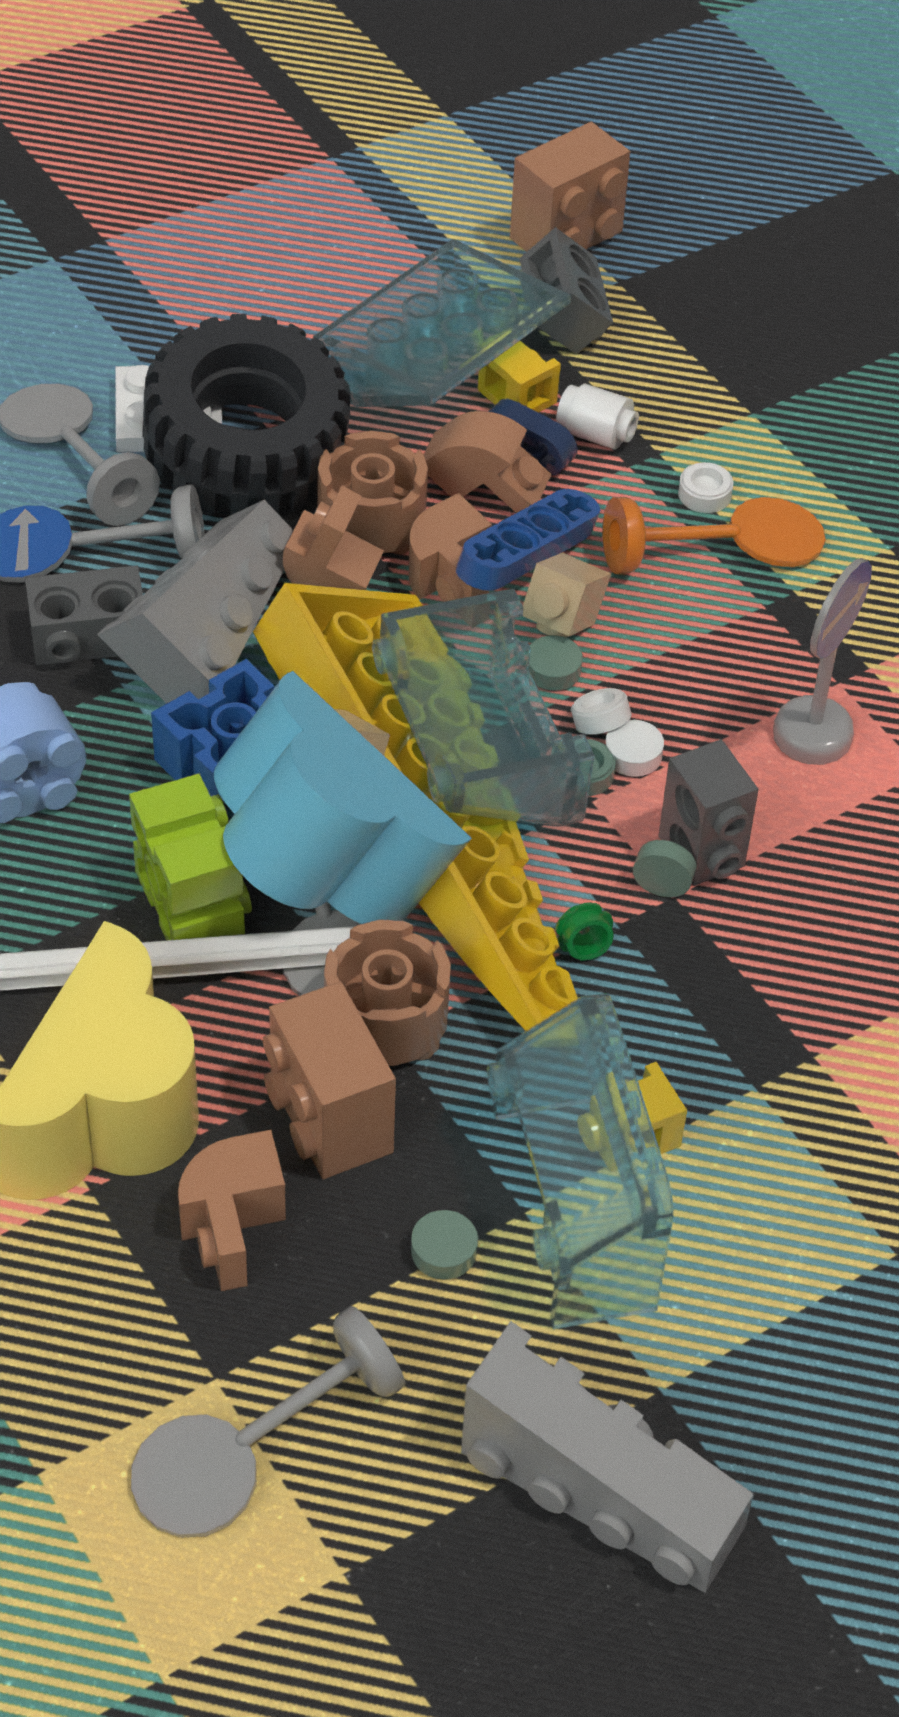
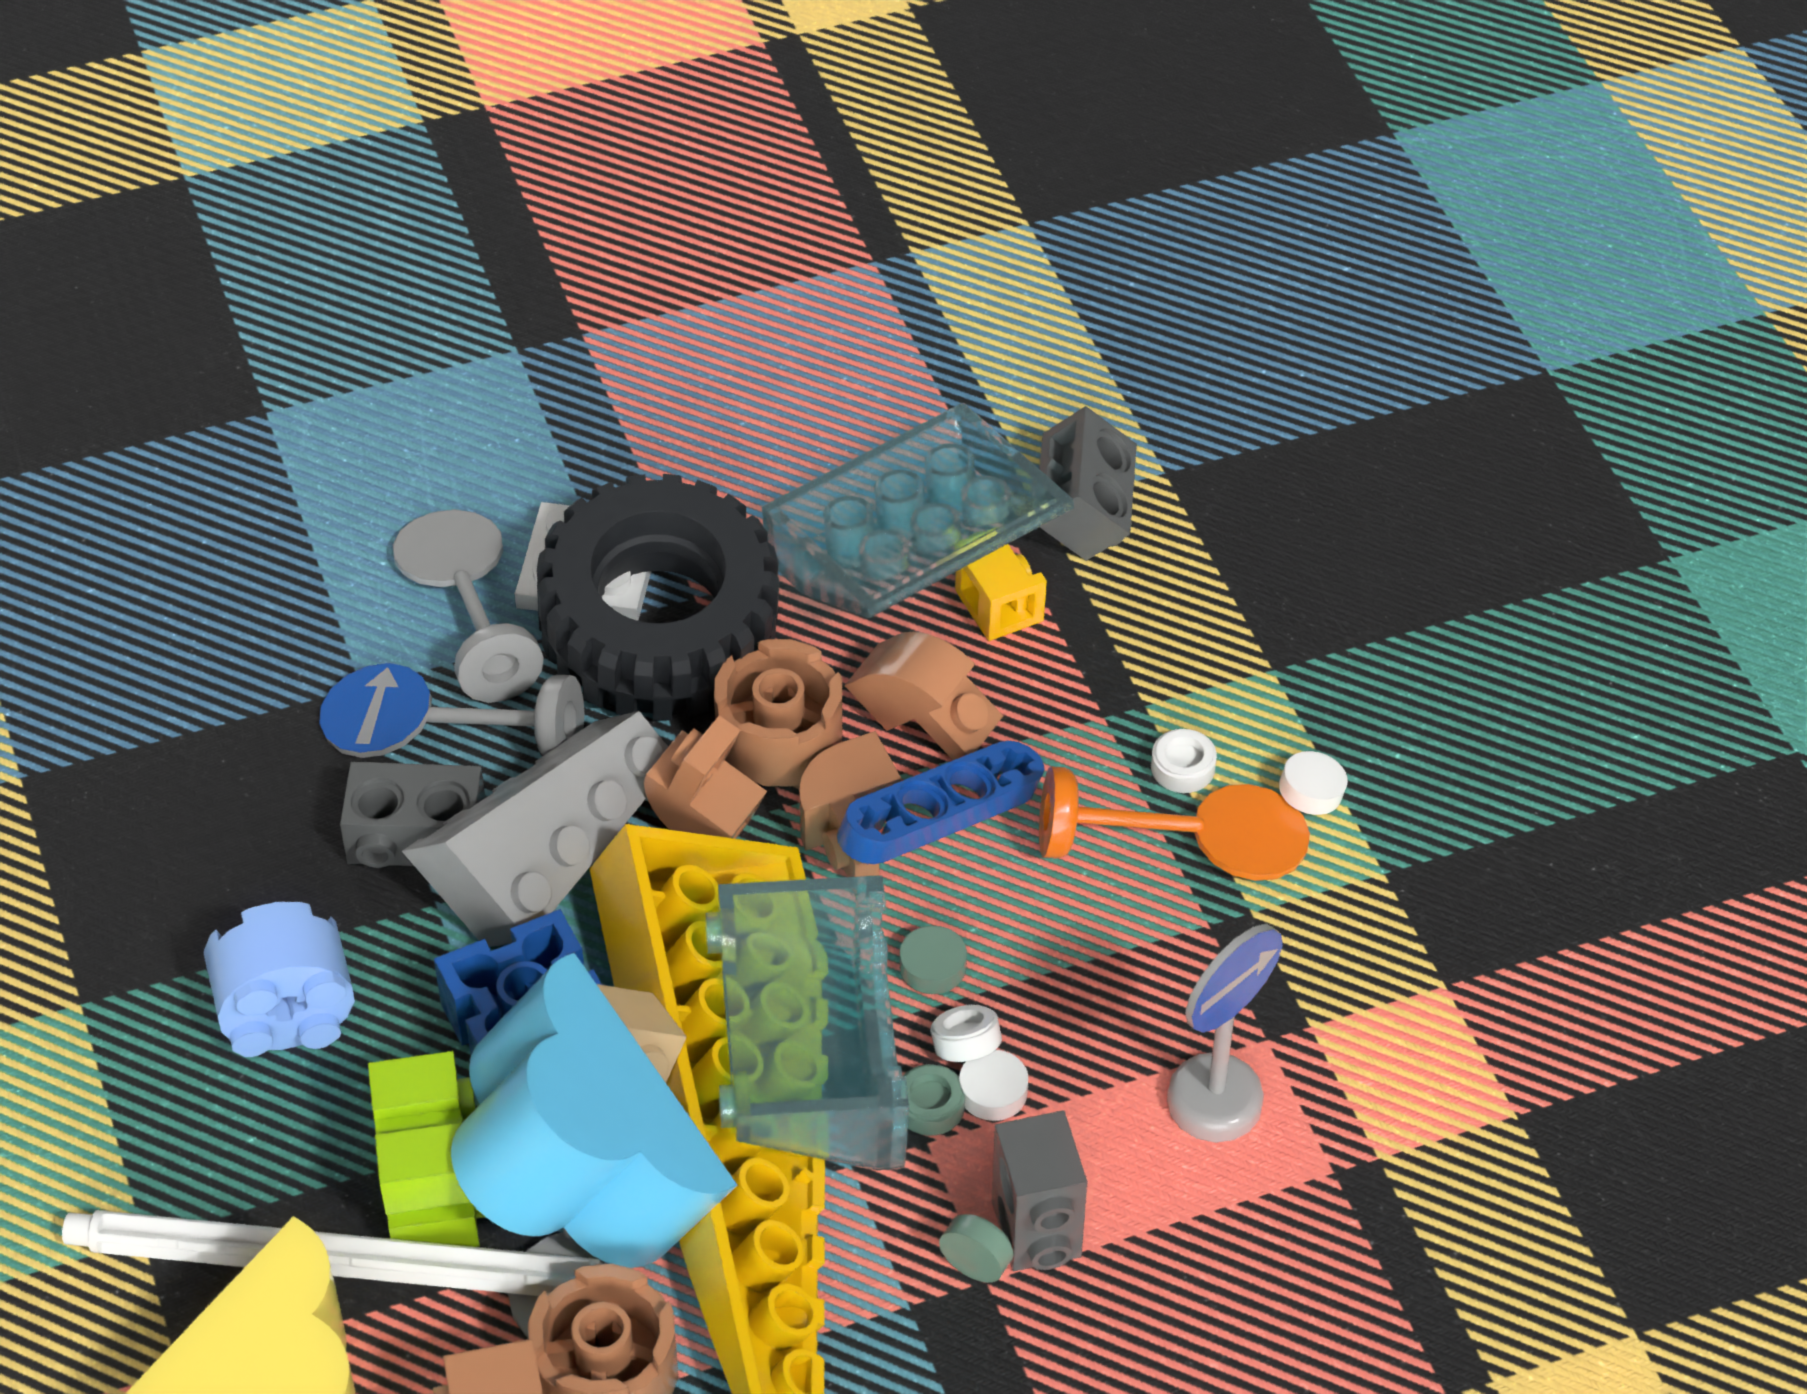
camera: 15 degrees right, 0 degrees up
(544, 437) = (997, 669): dark blue beam -> none
(565, 595) = (964, 879): tan brick -> none
(571, 186) = (1127, 355): nougat brick -> none
(585, 931) = (862, 1310): green plate -> none
(597, 415) = (1078, 649): white brick -> none
(815, 488) = (1313, 782): none -> white tile

